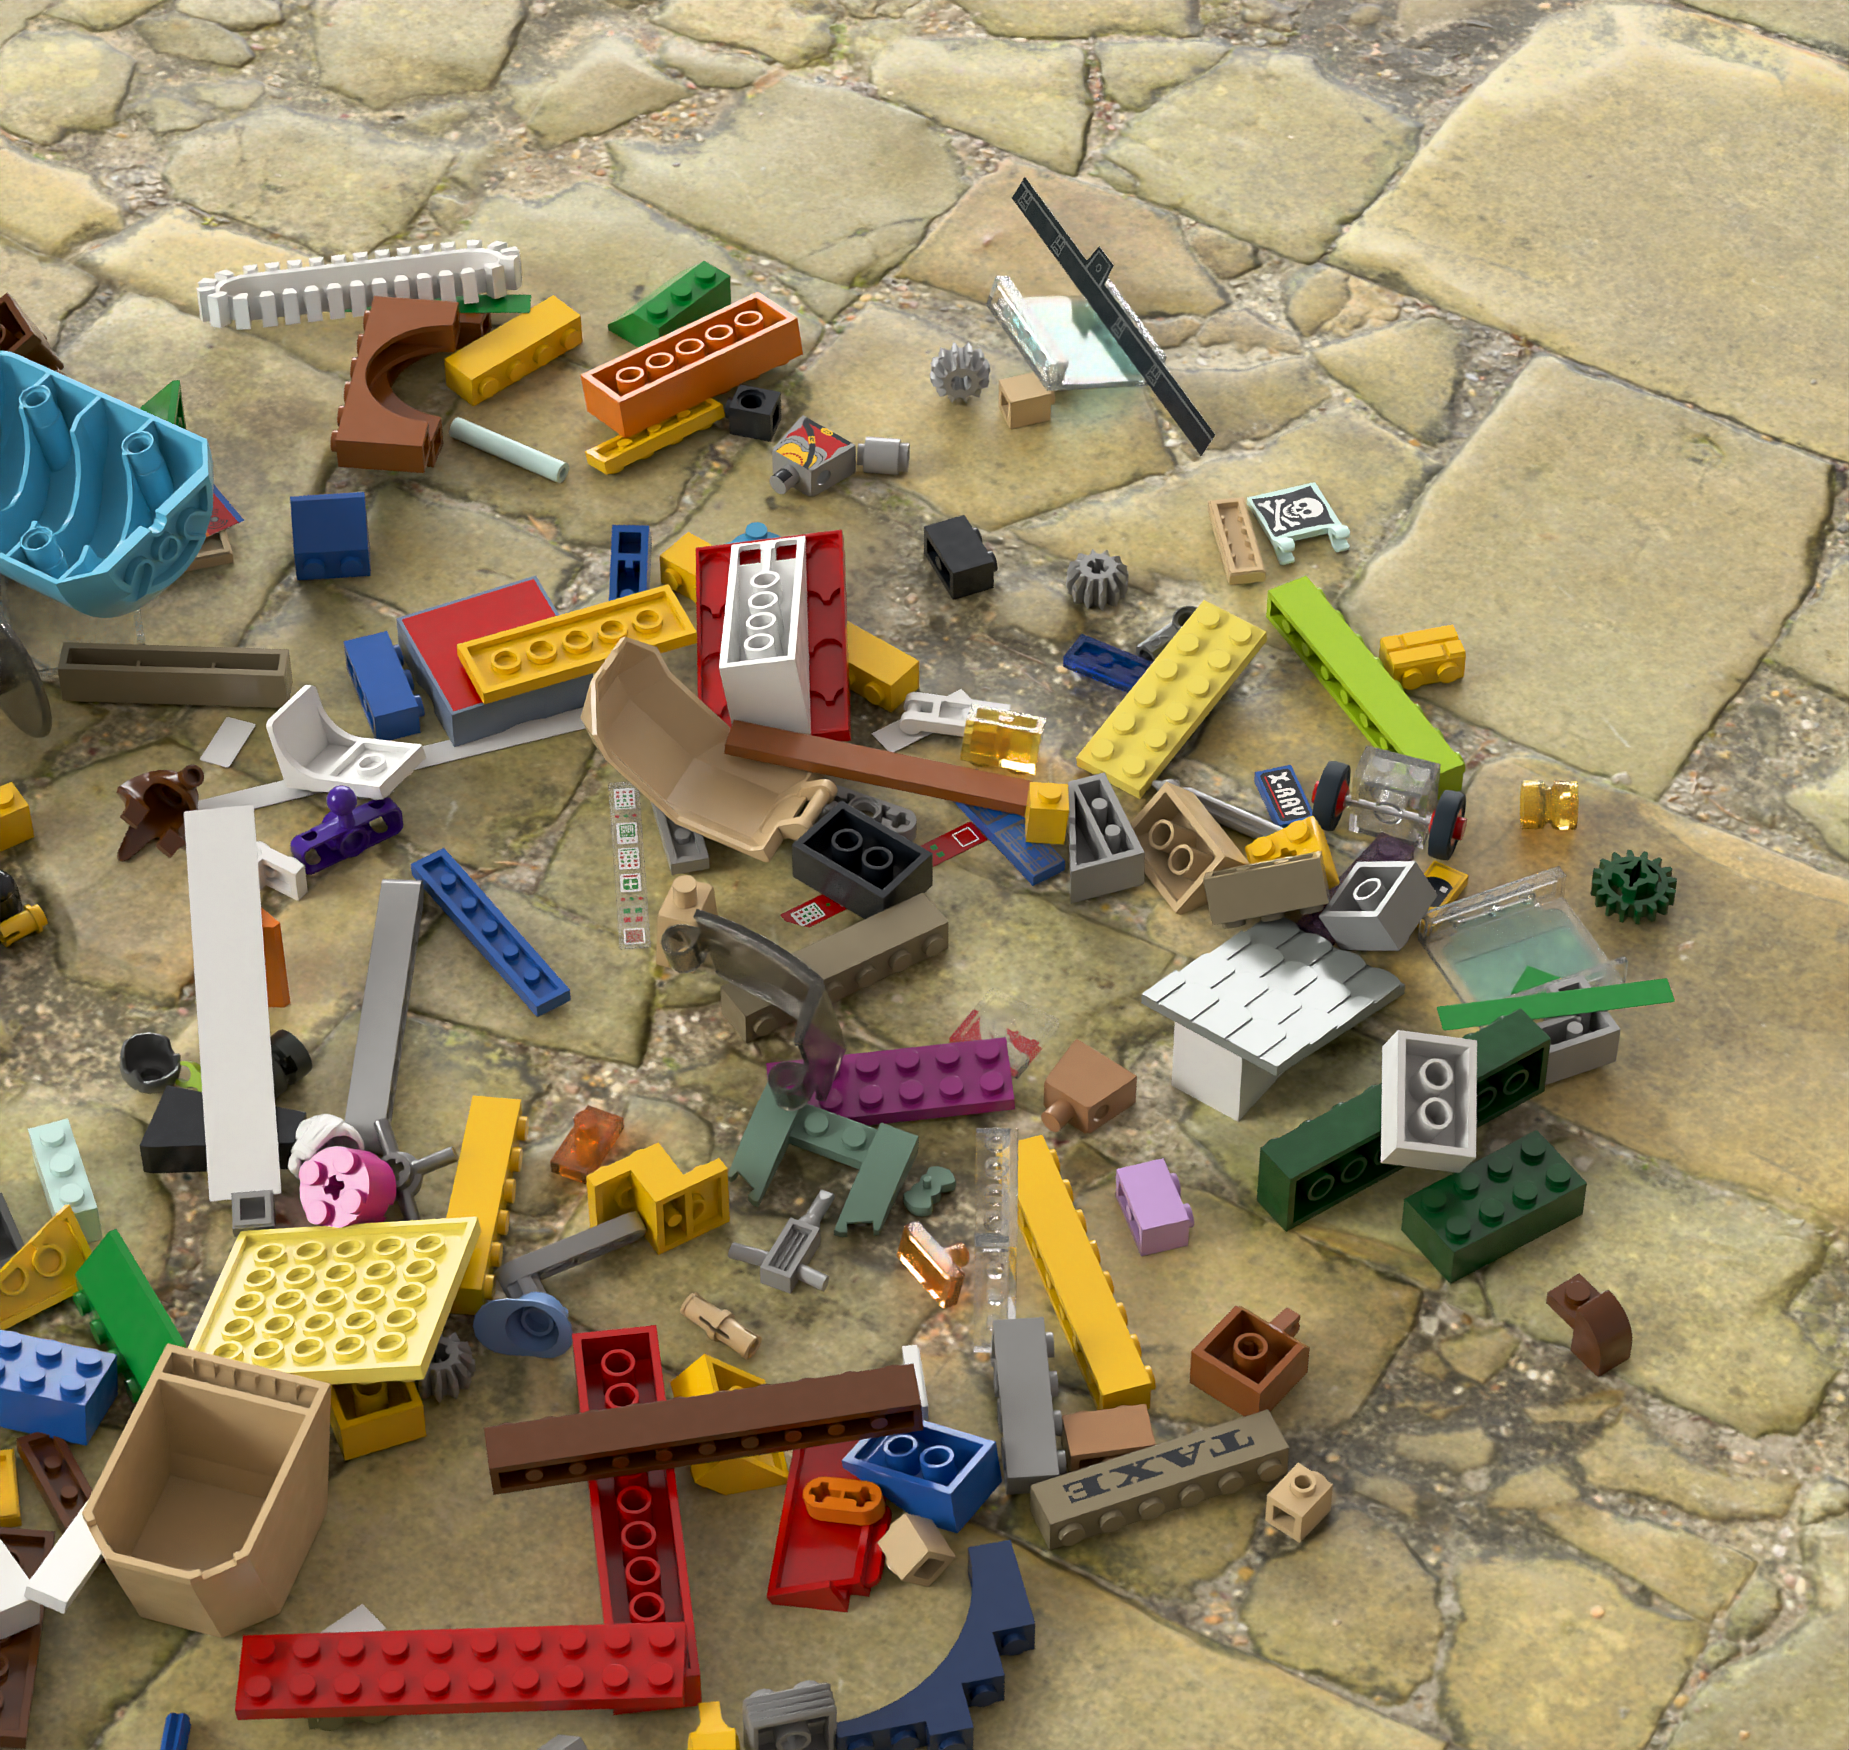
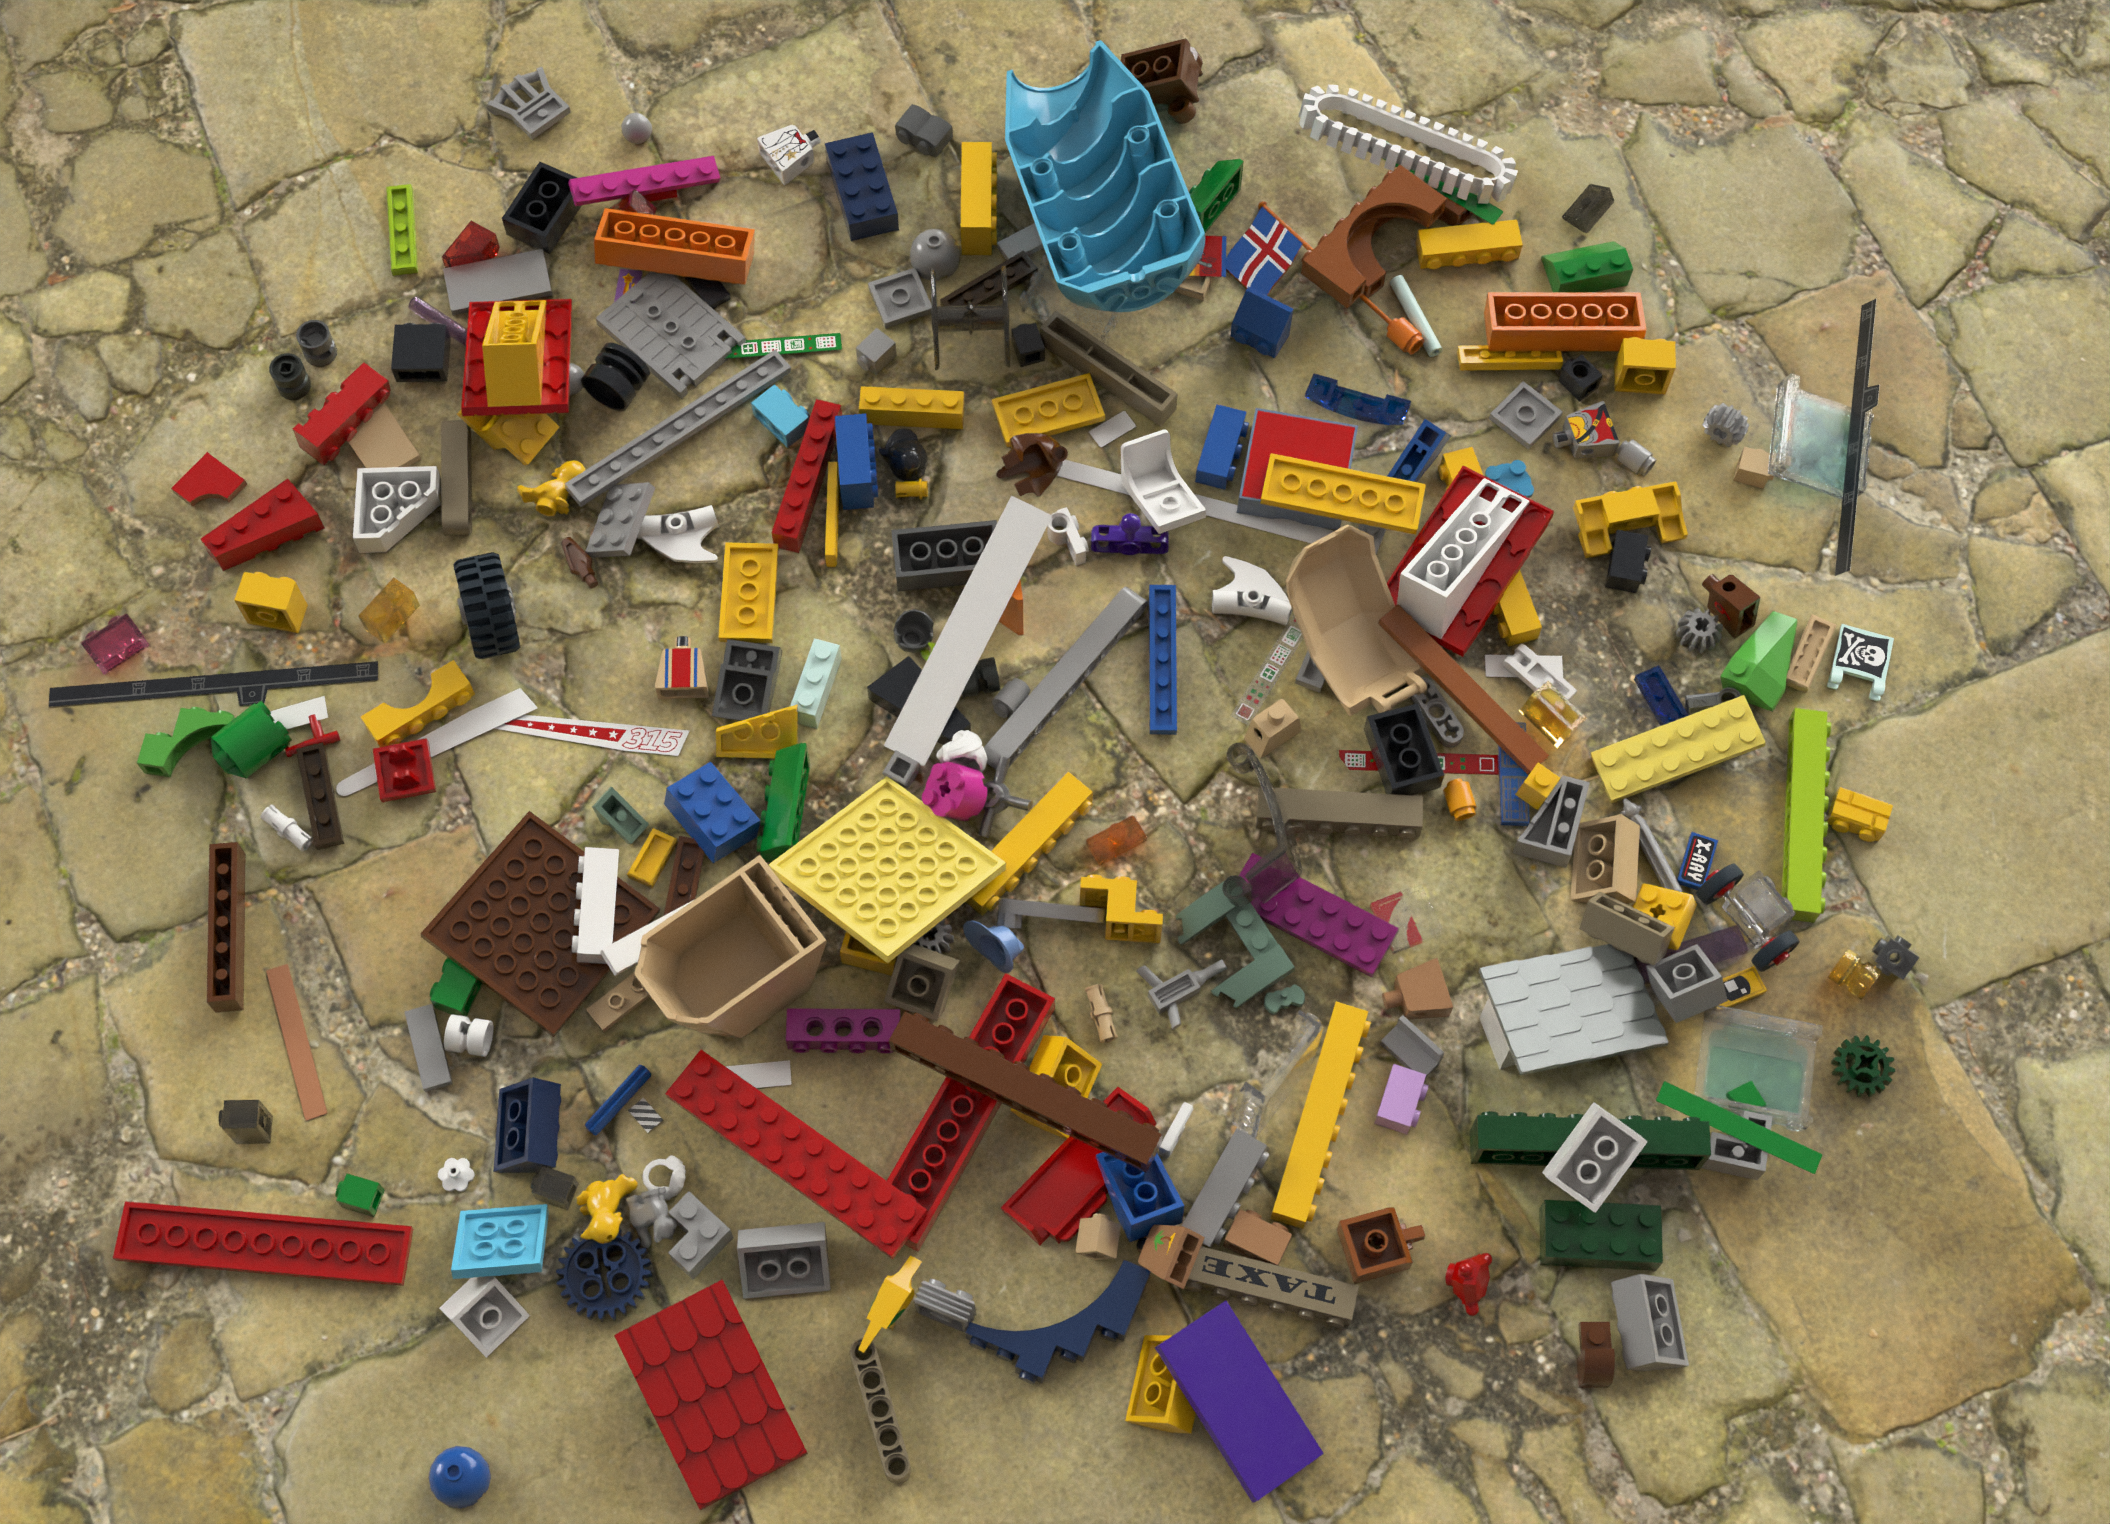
camera: 35 degrees right, 20 degrees up
(63, 703) = (1028, 344): none -> black brick
(86, 1653) = (618, 1003): none -> tan plate
(121, 964) = (938, 554): none -> dark grey brick
(145, 741) = (1049, 408): none -> yellow plate
(274, 468) = (1268, 253): none -> flag
(332, 1068) = (1010, 697): none -> light grey brick
(408, 1523) = (801, 1020): none -> magenta brick
(466, 1400) = (922, 981): none -> dark tan brick
(544, 812) = (1251, 594): none -> white pin
(559, 551) = (1356, 404): none -> clear blue slope
(623, 254) = (1589, 207): none -> clear smoke slope
(721, 479) = (1525, 415): none -> light grey plate
(821, 360) = (1644, 365): none -> yellow brick
(844, 1500) = (1077, 1182): orange beam -> none
(928, 497) = (1627, 511): none -> yellow bracket
(932, 1265) = (1248, 1054): clear orange tile -> none
(966, 880) = (1460, 799): none -> light orange brick
(1017, 1503) = (1170, 1252): none -> medium nougat torso
(1114, 526) = (1733, 603): none -> reddish brown torso
(1119, 1143) = (1412, 1047): none -> light grey panel
(1126, 1650) = (1155, 1395): none -> yellow slope
(1195, 569) = (1763, 662): none -> bright green wedge
(1229, 1605) = (1239, 1401): none -> dark purple tile
(1299, 1502) = (1336, 1354): tan brick -> none
(1386, 1337) = (1470, 1280): none -> red rock
(1578, 761) = (1901, 963): none -> dark grey brick
(1619, 1260) = (1649, 1323): none -> light grey slope

